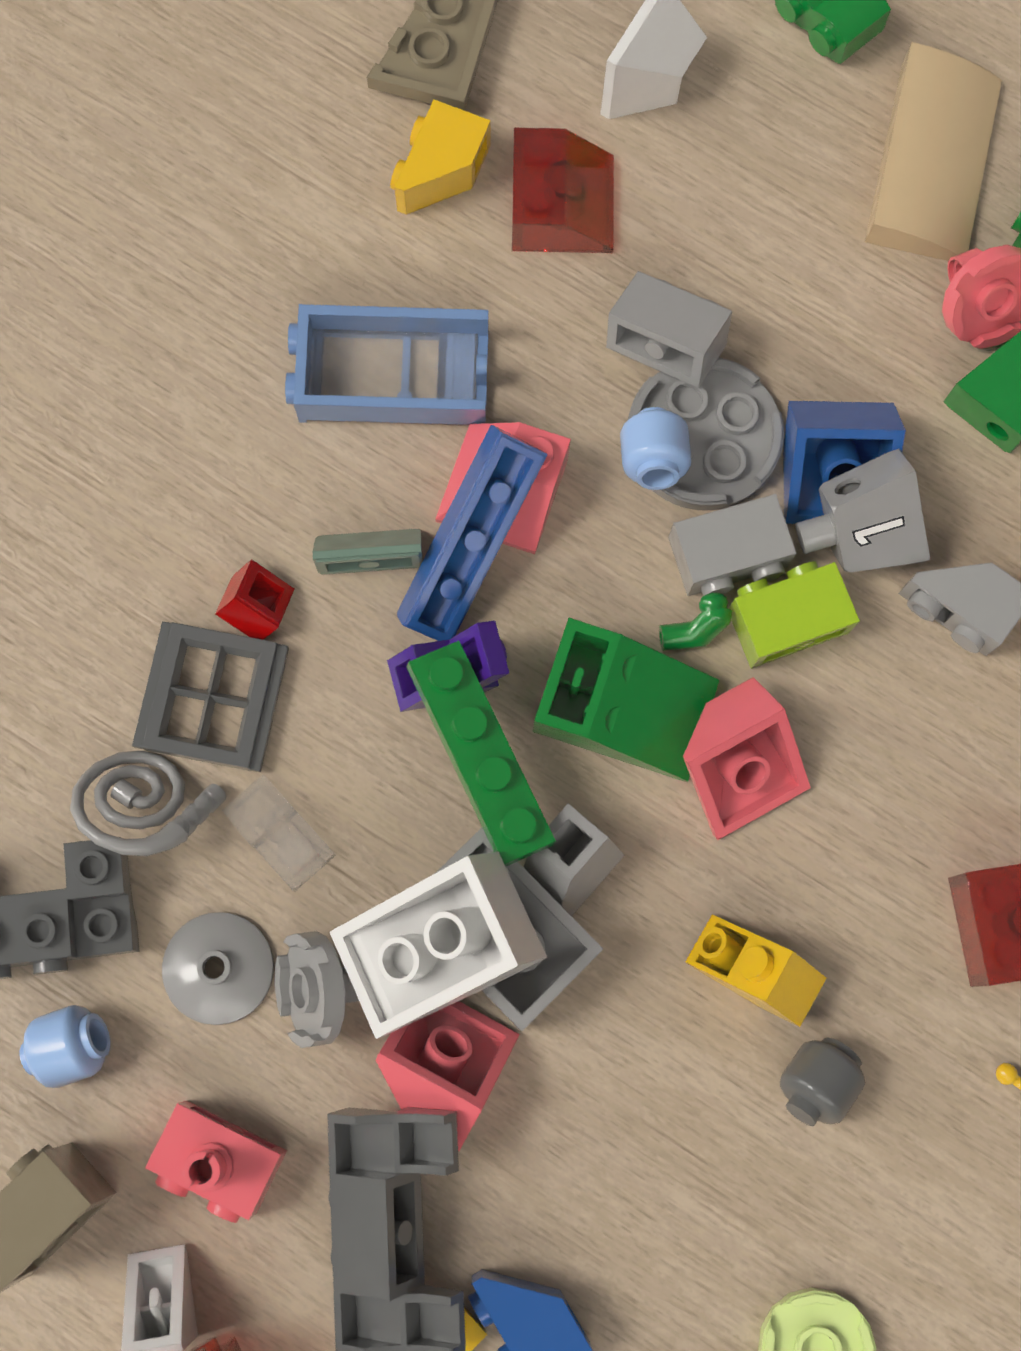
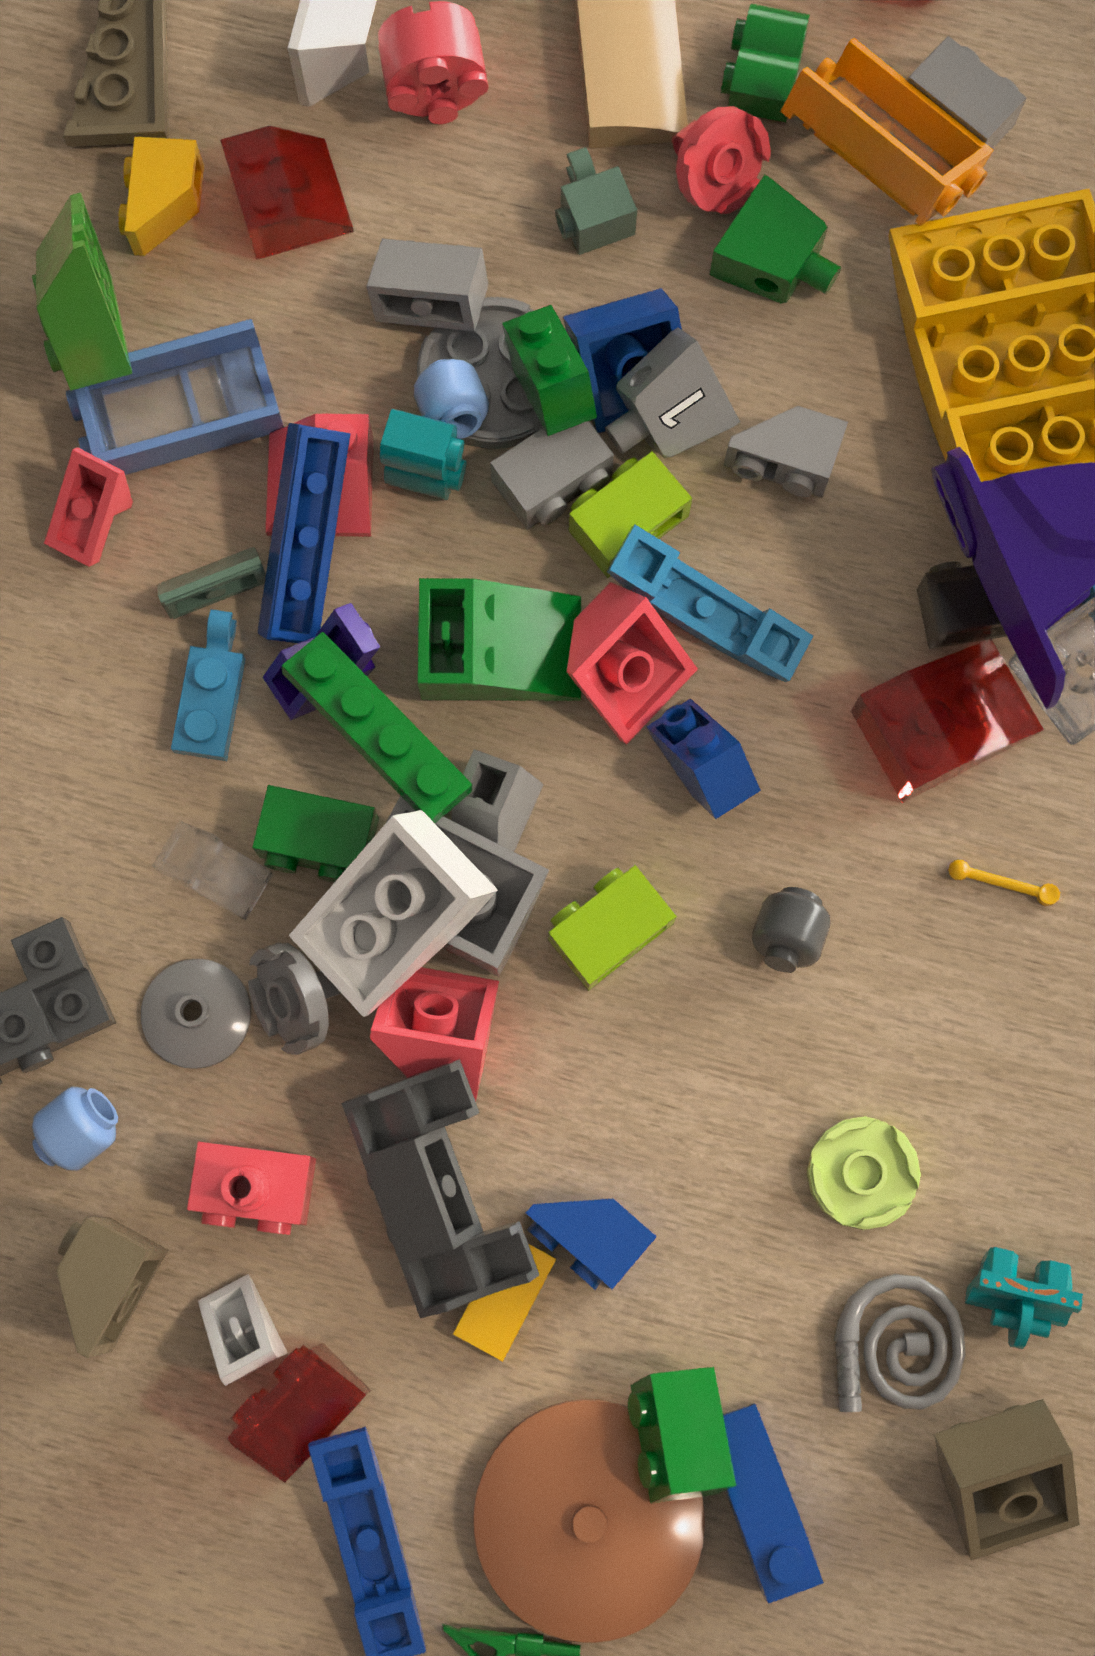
camera: 15 degrees left, 0 degrees up
(130, 796) = (59, 878): light grey piece -> none
(163, 688) = (58, 770): dark grey piece -> none
(255, 601) = (118, 662): red slope -> none
(272, 442) = (86, 506): none -> coral slope
(329, 243) = (78, 301): none -> bright green wedge
(332, 659) = (210, 693): none -> dark azure plate
(388, 832) = (312, 832): none -> green brick
(610, 494) = (422, 455): none -> teal brick
(645, 1019) = (610, 925): none -> lime brick
(700, 631) = (550, 554): green arm -> none
(741, 113) = (432, 61): none -> coral brick
(757, 969) = (699, 848): yellow slope -> none
(760, 452) = (550, 370): none -> green brick
(790, 881) = (704, 757): none -> blue slope
(841, 734) = (708, 609): none -> dark azure slope
(854, 302) = (594, 206): none -> sand green brick

